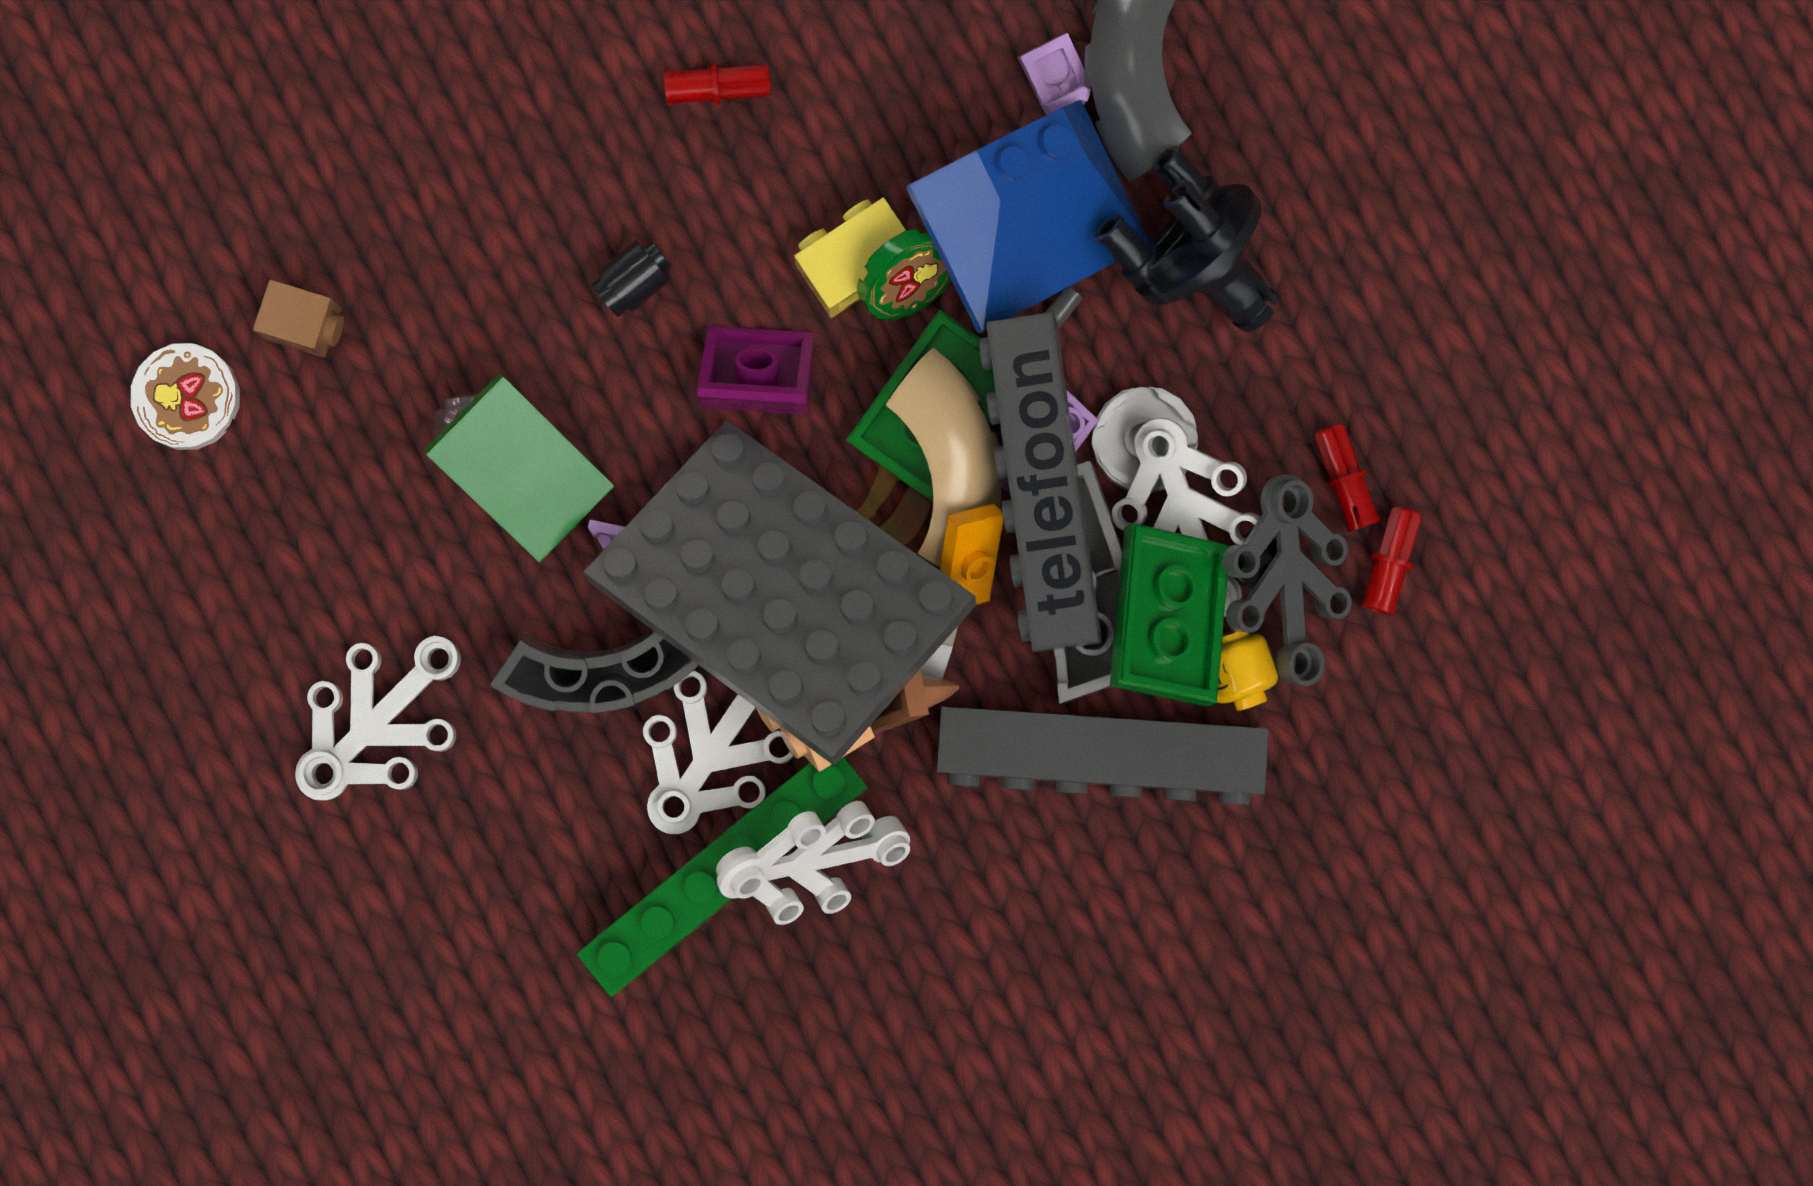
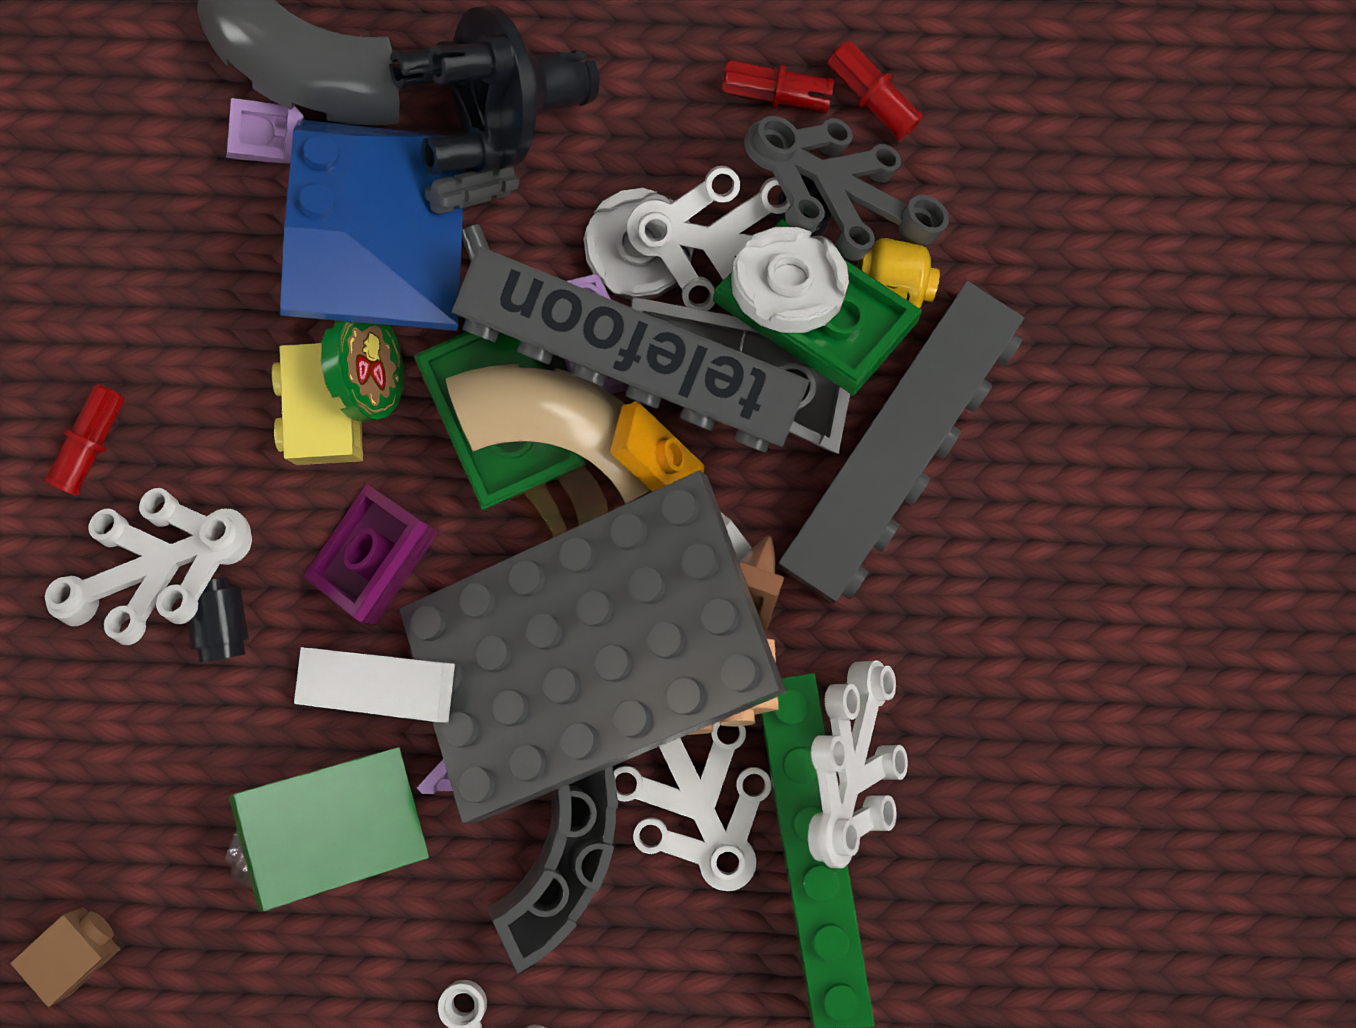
camera: 60 degrees left, 0 degrees up
(646, 203) = (154, 567): none -> white plant
(653, 436) = (374, 684): none -> white tile
(1103, 274) = (470, 189): none -> dark grey axle
(1176, 579) = (789, 280): none -> white tile

